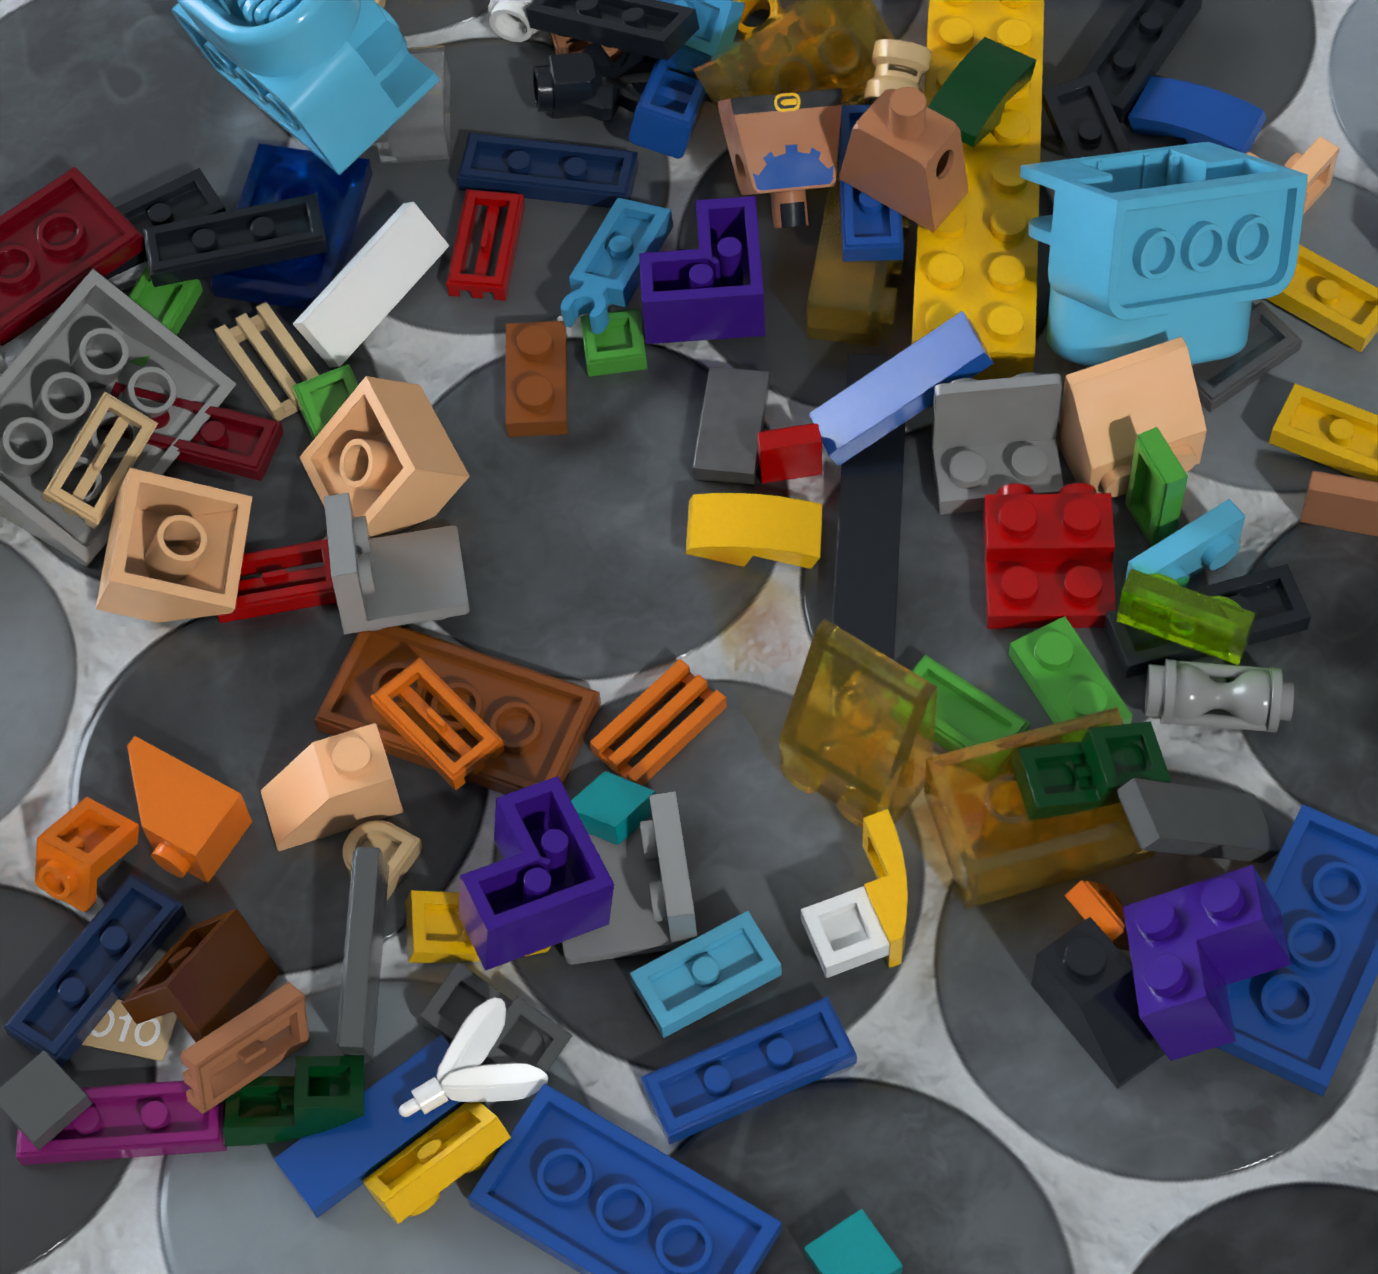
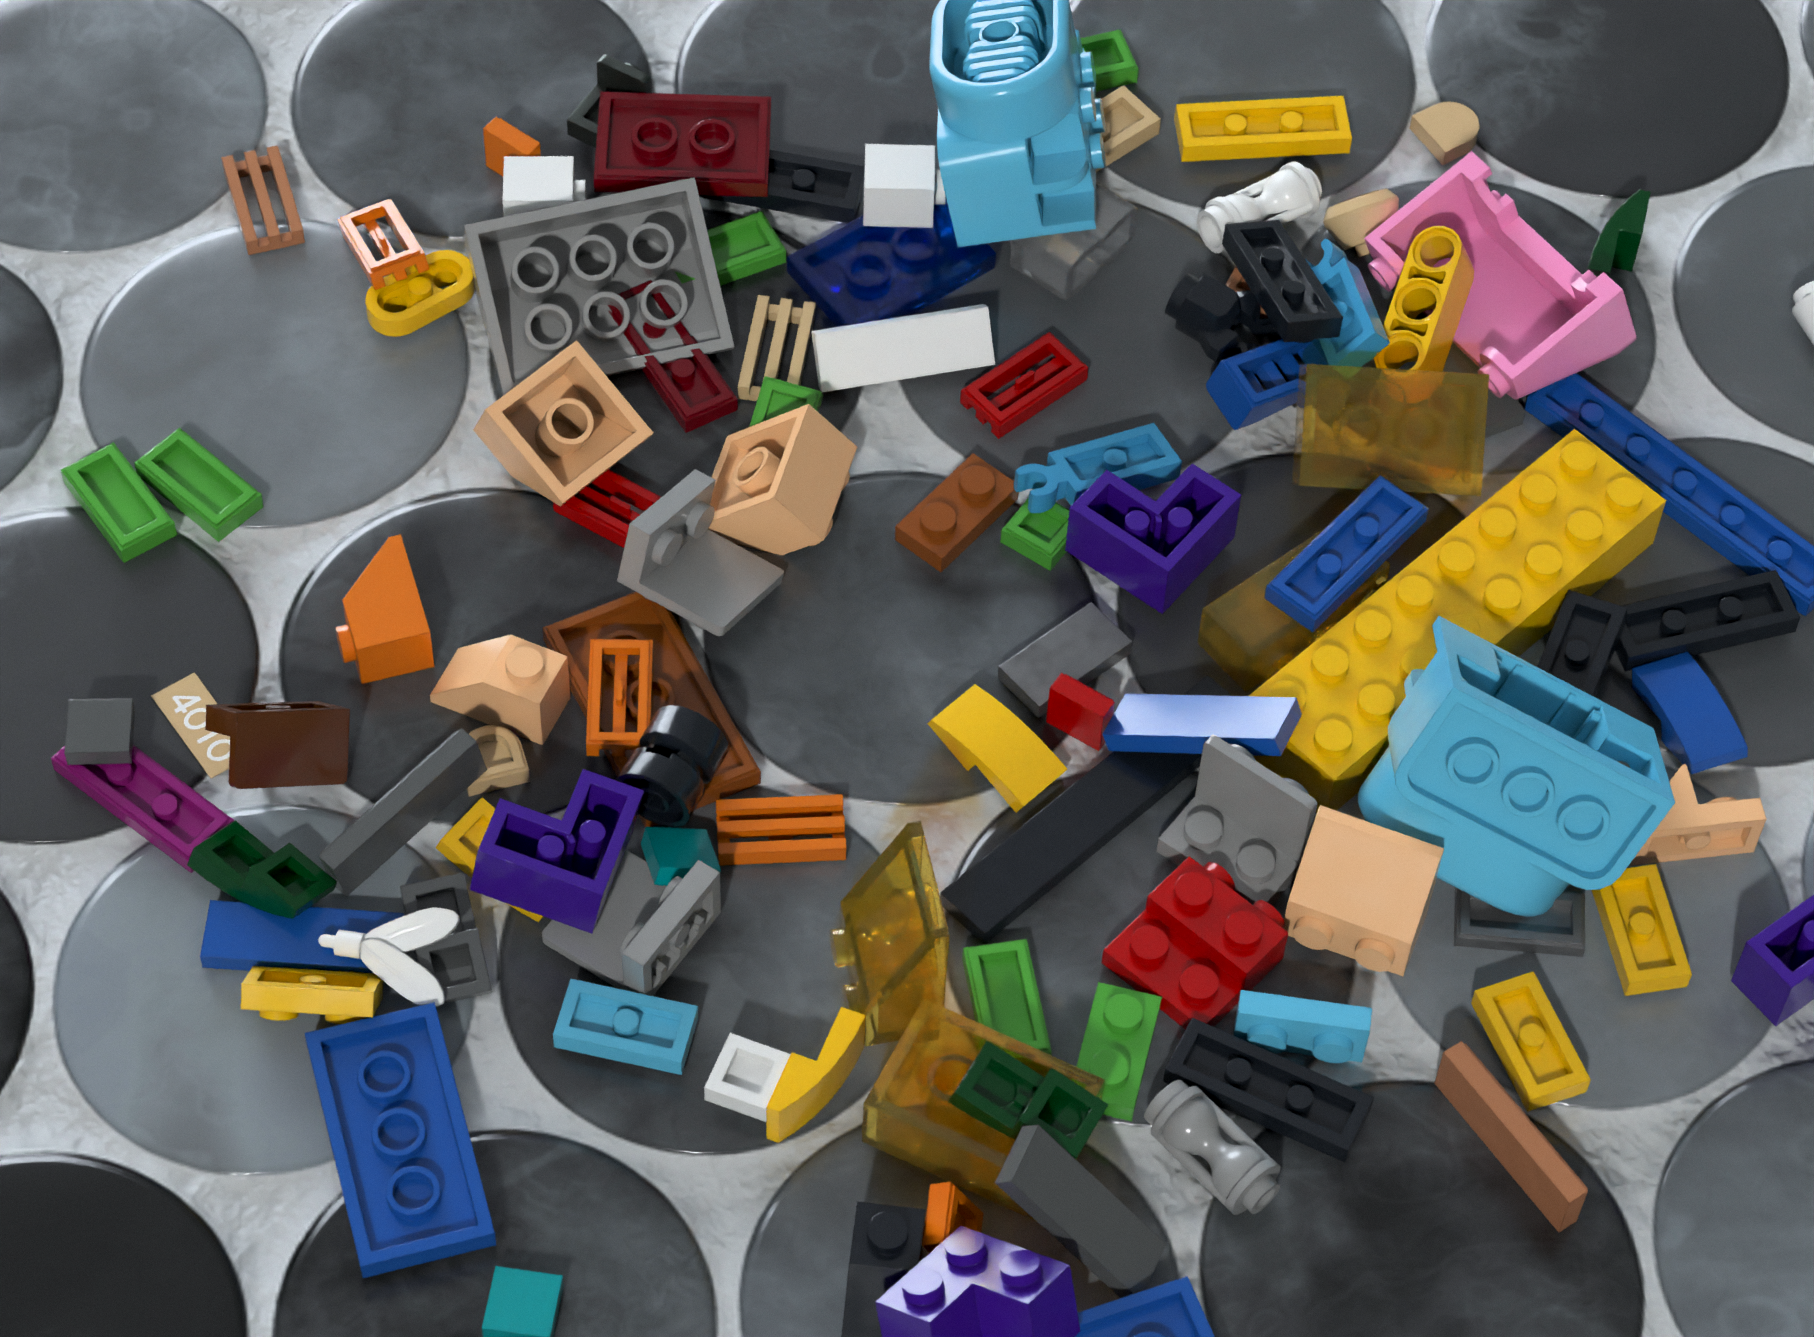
camera: 35 degrees right, 5 degrees down
(74, 503) = (623, 306): tan tile -> none
(81, 850) = (296, 587): orange bracket -> none
(95, 970) = (234, 674): dark blue tile -> none
(235, 240) = (833, 238): black tile -> none
(245, 1047) = (263, 800): nougat tile -> none
(252, 158) = (901, 185): none -> white brick
(543, 736) = (673, 764): none -> black wheel
(547, 170) = (1129, 365): dark blue tile -> none
(748, 1070) = (590, 1119): blue tile -> none
(784, 147) = (1299, 474): torso -> none
(897, 66) = (1441, 497): tan wheel -> none
(907, 157) = (1368, 528): nougat torso -> none
(981, 87) = (1486, 544): dark green slope -> none
(1155, 487) = (1322, 947): bright green tile -> none
(1185, 616) = (1229, 1045): clear neon green plate -> none

